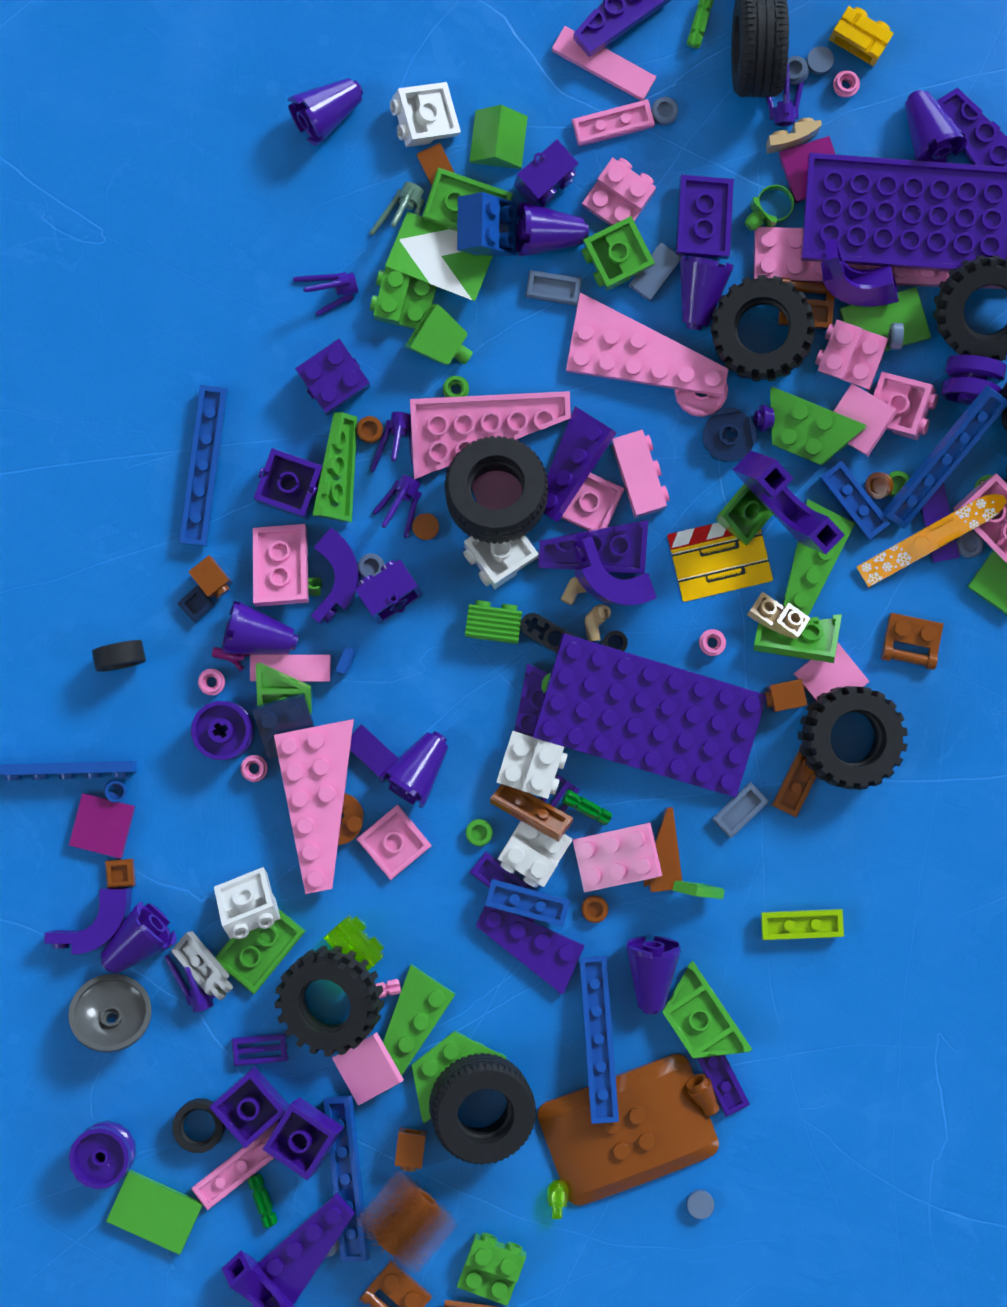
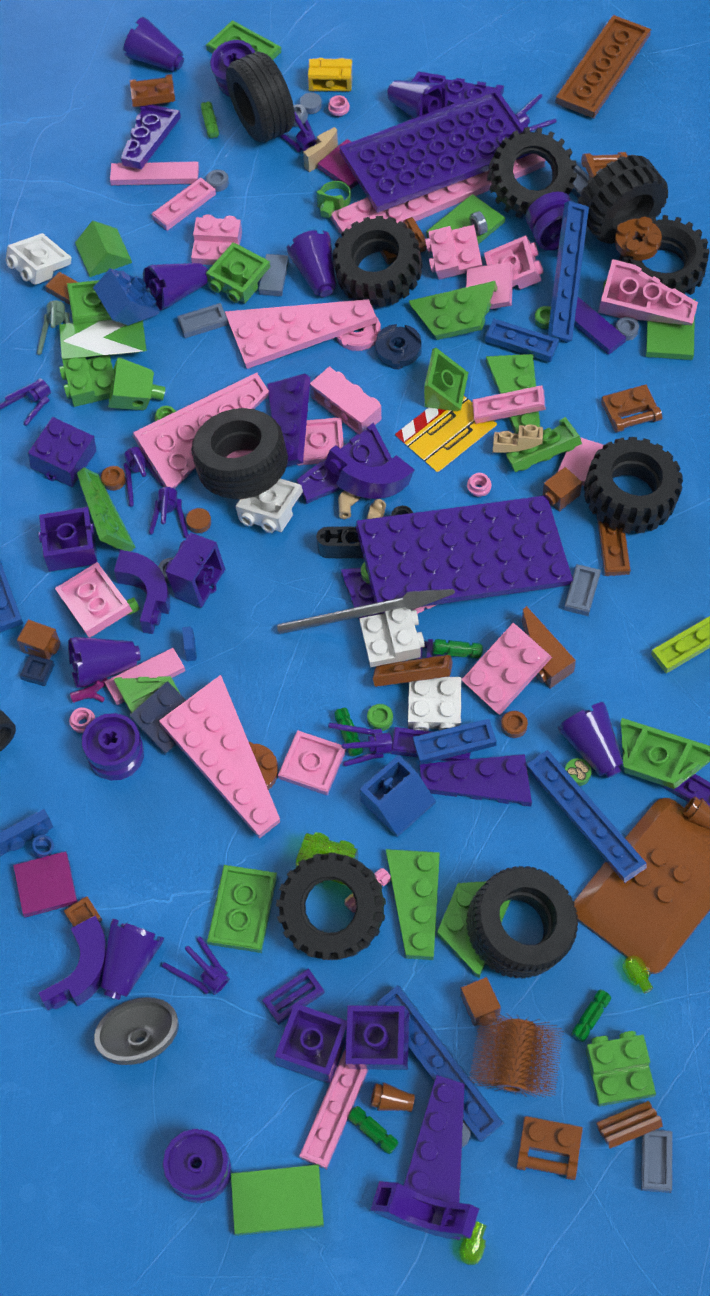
camera: 30 degrees left, 25 degrees down
(179, 1132) = (265, 1072): black tyre -> none
(203, 965) = (207, 946): light grey hinge -> none
(245, 768) = (156, 760): bright pink plate -> none
(246, 904) = (212, 872): white plate -> none
(290, 1185) = (389, 1098): none -> dark orange cone
(368, 1069) = (400, 953): bright pink tile -> none
(371, 750) = (254, 703): dark purple tile -> none
(417, 769) = (297, 694): dark purple cone -> none
(442, 831) = (343, 717): none -> green axle
(446, 924) = (397, 796): none -> blue slope
(459, 862) = (378, 743): none -> dark purple plant
(493, 623) = (295, 556): bright green brick -> none
(496, 1210) = (591, 1015): none -> green axle
(544, 176) = (152, 243): dark purple brick -> none
(561, 750) = (410, 600): none -> flat silver piece
(621, 988) = (579, 770): none -> tile
(698, 889) = (588, 653): bright green tile -> none
(704, 216) = (285, 219): dark purple plate -> none
(764, 418) = (417, 320): dark purple plate -> none
(769, 483) = (489, 363): dark purple arch -> none
(793, 572) = (509, 404): none -> bright pink tile
(854, 285) = (434, 208): dark purple arch -> none
(879, 485) = (533, 321): dark orange tile -> none
(931, 538) = (595, 330): light orange piece -> none

